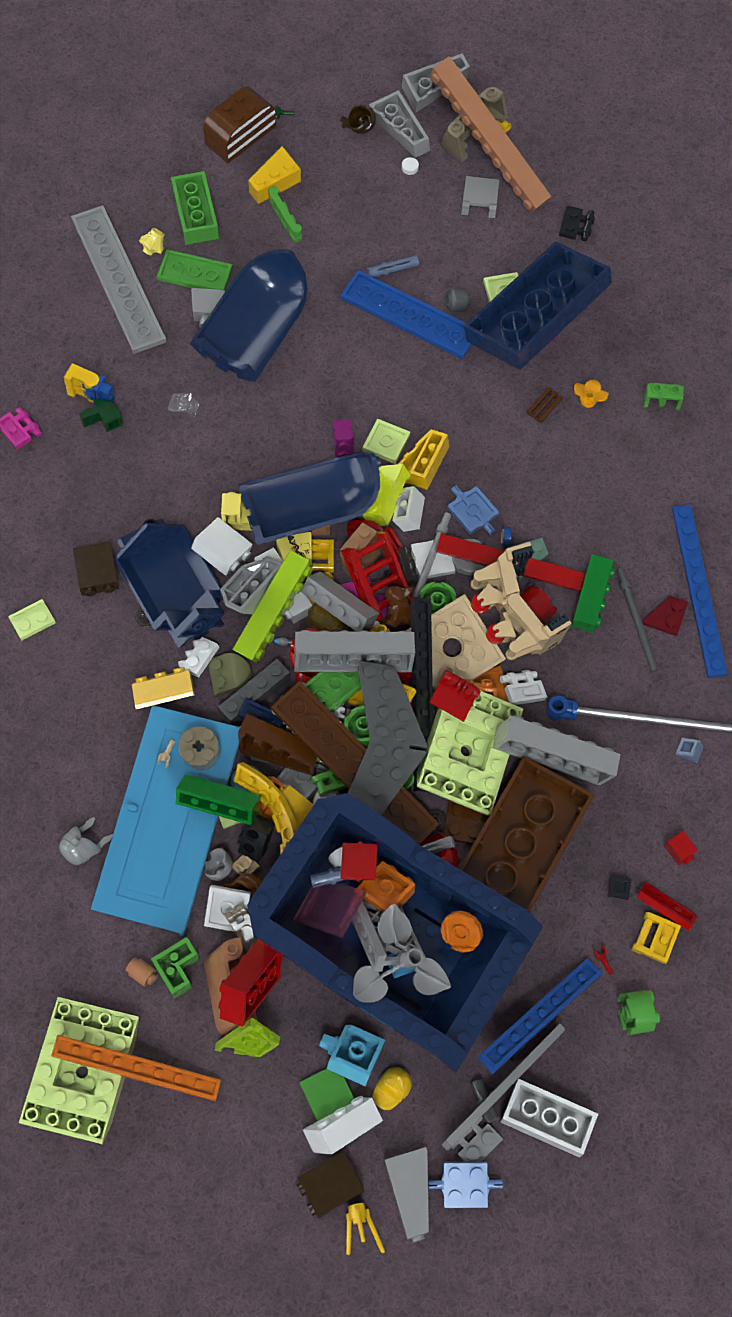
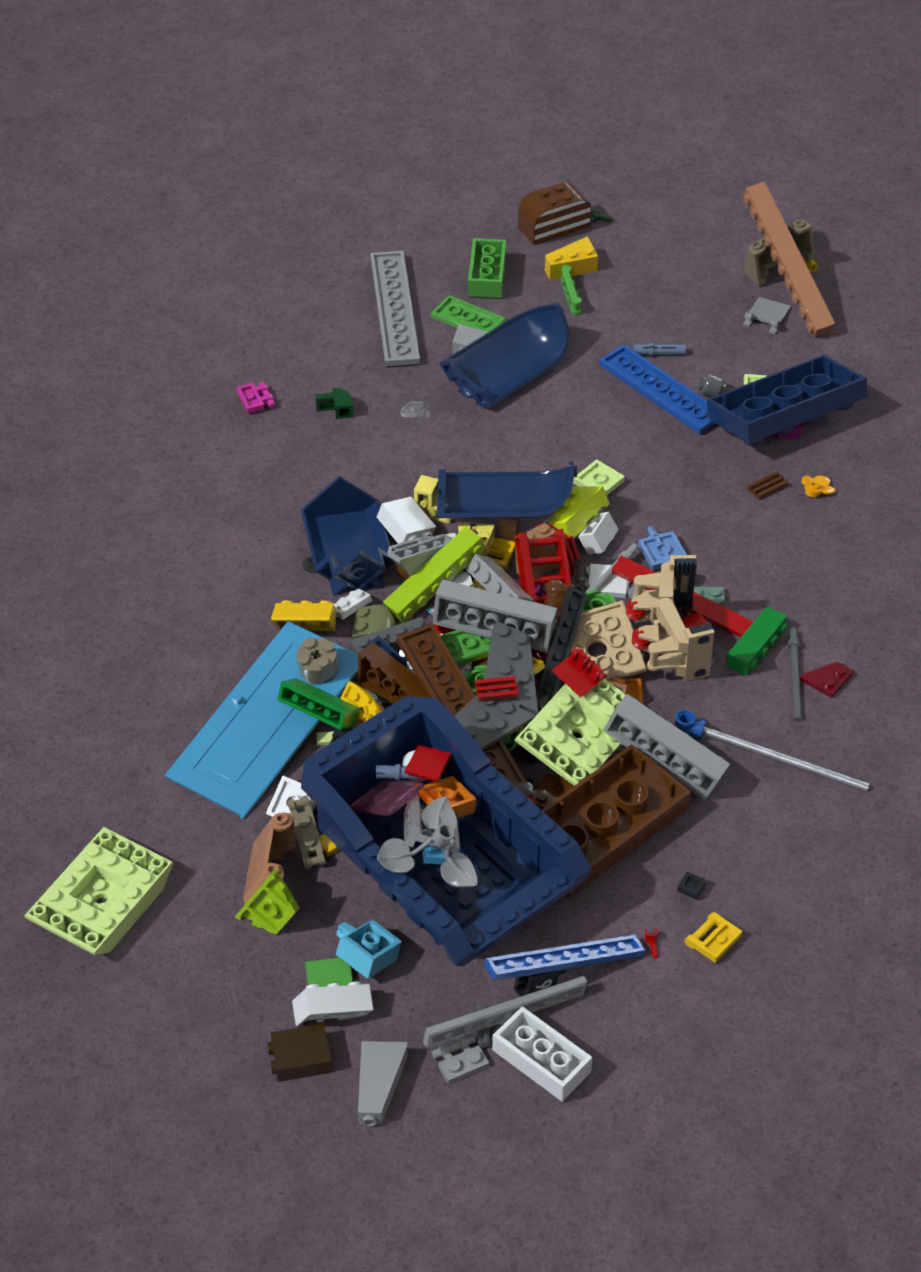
camera: 20 degrees right, 20 degrees down
(32, 619) = (206, 542): yellowish green plate -> none
(78, 849) = (172, 719): light grey hair -> none
(87, 384) = (331, 374): yellow hips -> none
(96, 569) = (281, 515): dark brown brick -> none
(135, 1068) = (153, 900): orange tile -> none
(141, 972) = (191, 833): nougat brick -> none
(152, 241) = (437, 285): light yellow rock -> none
(166, 755) = (282, 662): tan hand -> none
(171, 965) = (223, 832): bright green brick -> none
(219, 865) = (296, 770): light grey hair -> none
(249, 983) = (287, 843): red brick -> none
(343, 437) = (556, 457): magenta brick -> none
(357, 1214) = (316, 1087): yellow plant -> none
(360, 119) = (671, 234): dark brown hat -> none
(392, 1088) = (395, 992): yellow piece -> none
(399, 121) = (708, 241): light grey wedge -> none
(400, 731) = (495, 686): none -> red tile
(410, 166) = (707, 279): white tile -> none
(420, 87) = (740, 224): light grey wedge -> none
(426, 458) = (631, 498): yellow wedge -> none
(462, 931) = (507, 850): orange tile -> none
(465, 1184) = (435, 1089): plate -> none
(525, 692) = (658, 699): white plate -> none
(571, 222) = (851, 349): black plate -> none
(638, 1012) = (668, 988): bright green brick -> none
(663, 392) = (891, 497): bright green window -> none
(667, 906) = (734, 912): red plate -> none
(681, 849) = (767, 868): red brick -> none
(690, 749) = (810, 792): sand blue slope -> none
(699, 591) = (868, 667): blue plate -> none

